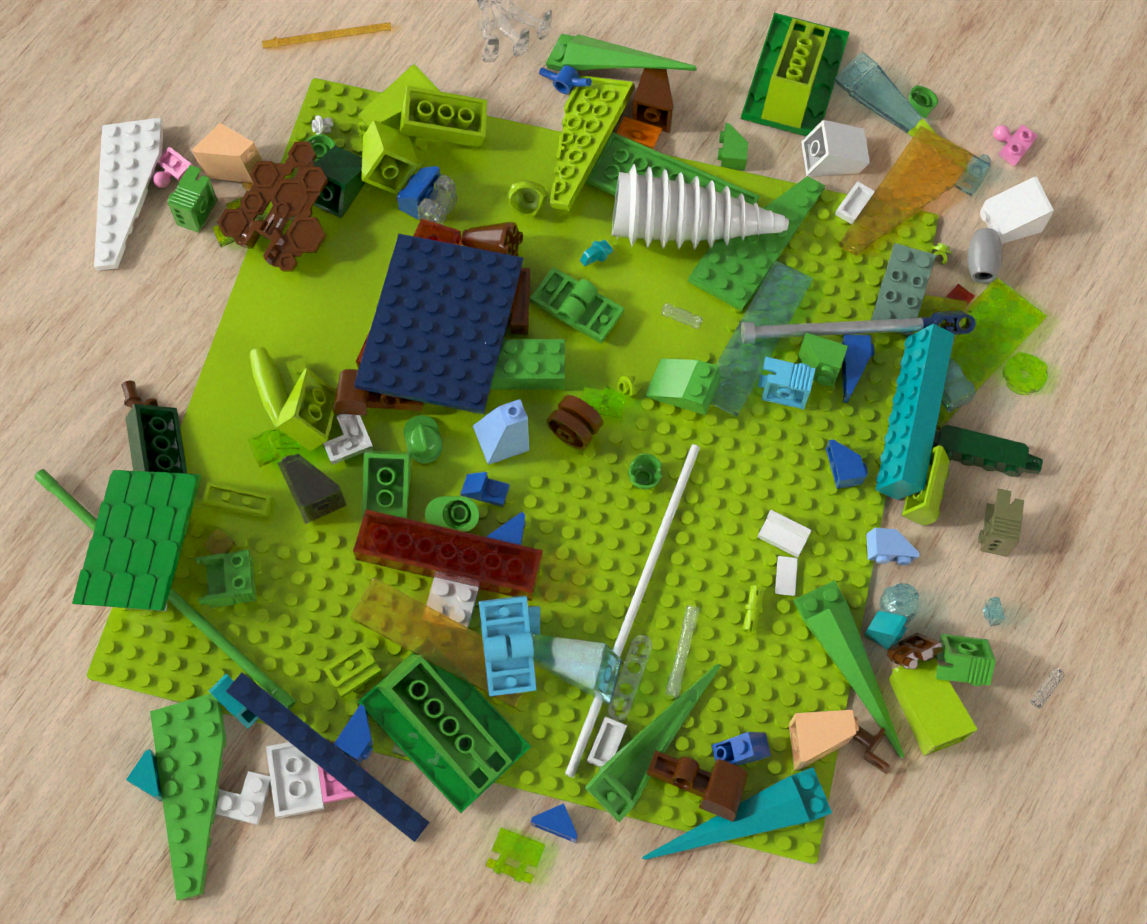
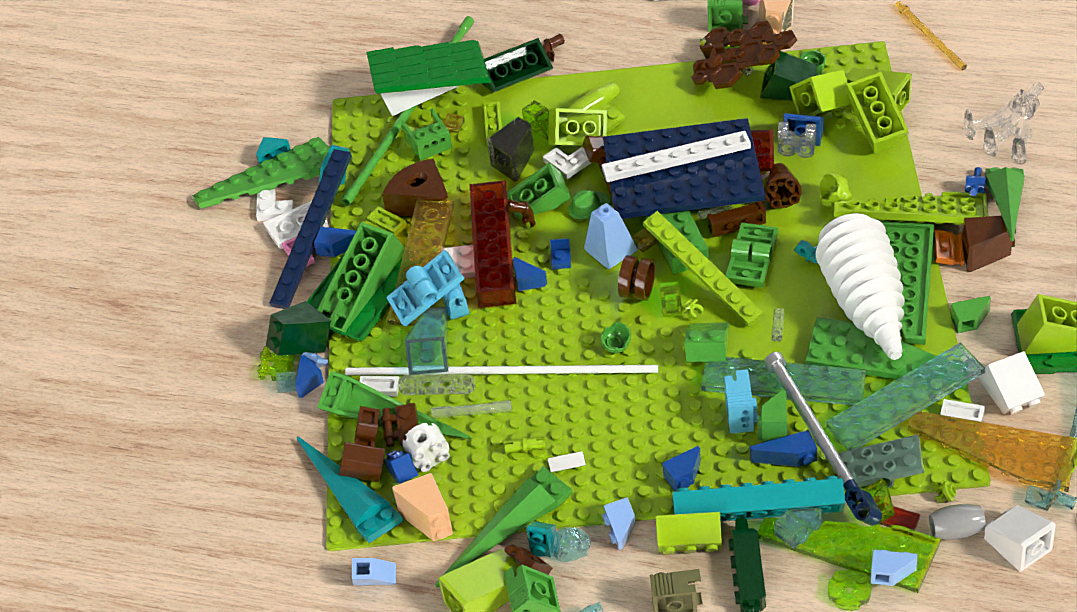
camera: 80 degrees right, 20 degrees down
(322, 125) = (835, 55): white plate -> none
(326, 609) = (411, 184): none -> reddish brown piece
(418, 507) = (522, 208): none -> reddish brown piece
(434, 320) = (676, 156): none -> white plate
(452, 513) = (527, 234): bright green piece -> none
(496, 813) = (298, 330): none -> dark green slope
(507, 395) = (644, 240): none -> clear yellow plate
(531, 807) = (316, 359): none -> light blue slope
(556, 849) = (286, 382): none -> clear light blue plate
(589, 354) = (703, 269): none -> lime plate
(682, 725) = (406, 419): none -> reddish brown plate
(741, 700) = (426, 446): none -> white brick
(784, 533) = (600, 446): white panel -> none
(827, 240) = (905, 397): none -> clear light blue plate
(871, 742) = (437, 557): reddish brown bracket -> none
(876, 821) = (373, 572): none -> light blue slope
(1027, 328) = (891, 567): none -> light blue slope

